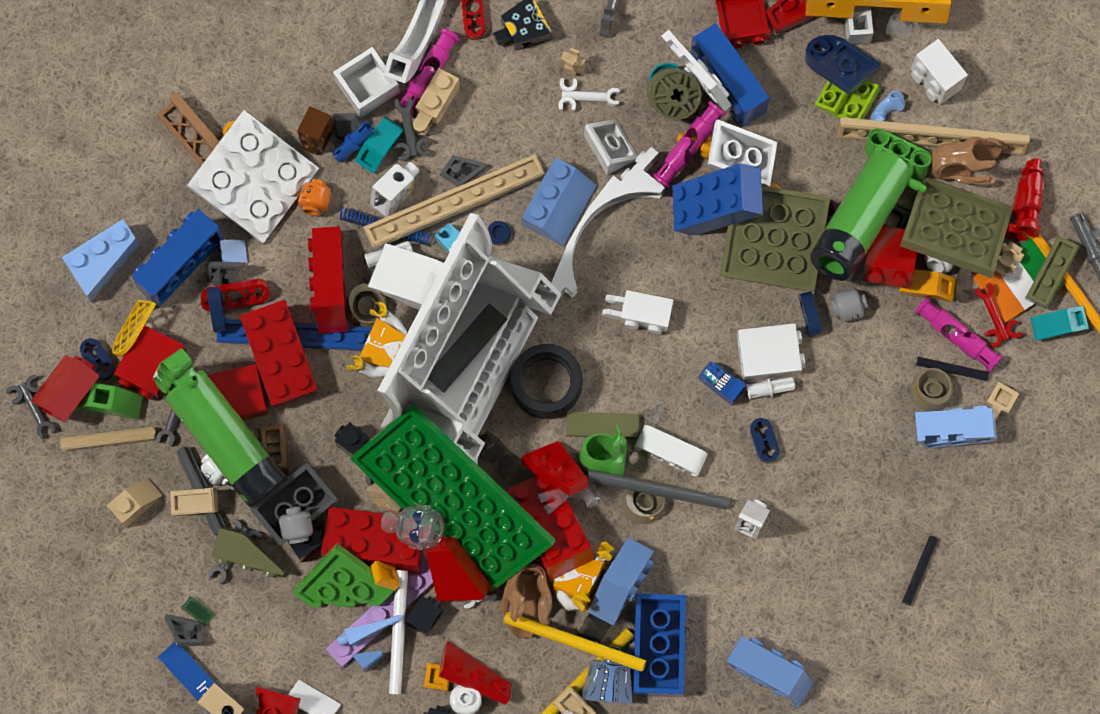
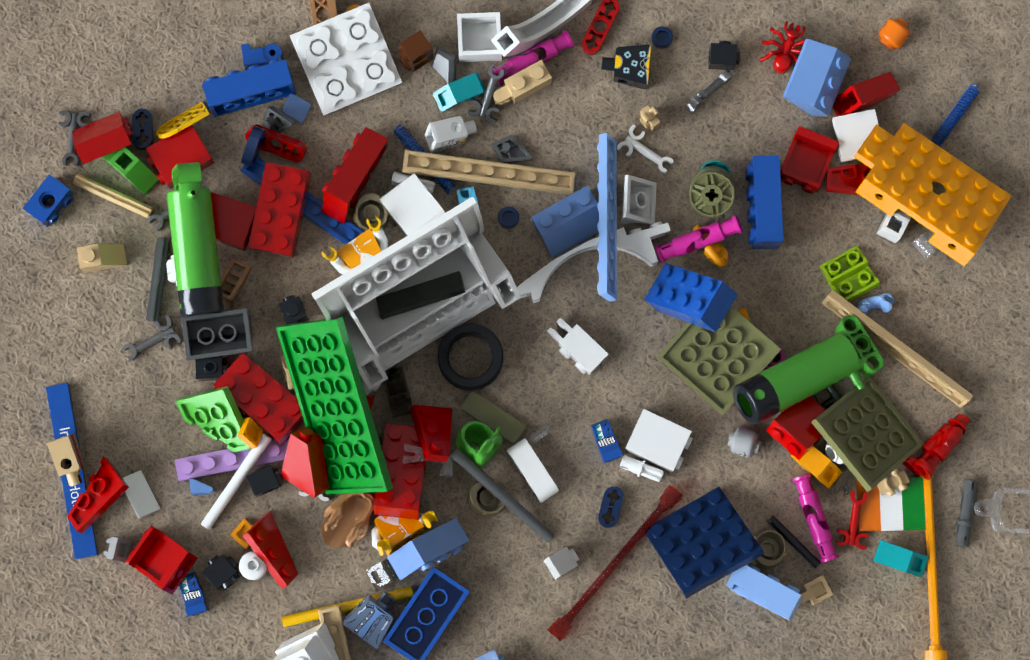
camera: 30 degrees right, 5 degrees up
(45, 466) = (49, 189): none -> blue brick
(101, 257) = (192, 52): light blue wedge -> none
(167, 223) = (260, 55): none -> blue leg
(184, 631) = (77, 379): dark grey piece -> none
(194, 501) = (146, 284): tan tile -> none
(197, 611) = (98, 370): clear green piece -> none
(239, 548) = (157, 344): olive slope -> none
(296, 525) = (206, 352): light grey head -> none
(314, 197) = (383, 103): orange head -> none
(353, 141) = (440, 78): blue pin -> none
(357, 634) = (202, 464): light blue piece -> none
(415, 526) = (294, 410): clear piece -> none
(576, 642) = (365, 577): yellow piece -> none
(597, 181) = (607, 217): none -> light blue plate
(707, 82) = (740, 189): white wing -> none
(735, 145) = (736, 269): white slope -> none
(790, 577) = (667, 500): none -> clear red hose
(810, 314) = (709, 430): dark blue beam -> none
(840, 62) = (860, 246): dark blue tile -> none
(871, 417) = (703, 542): none -> dark blue plate
(938, 72) = (932, 301): white piece -> none
(959, 158) = (906, 381): medium nougat hair -> none
(1052, 272) = (921, 515): olive tile -> none

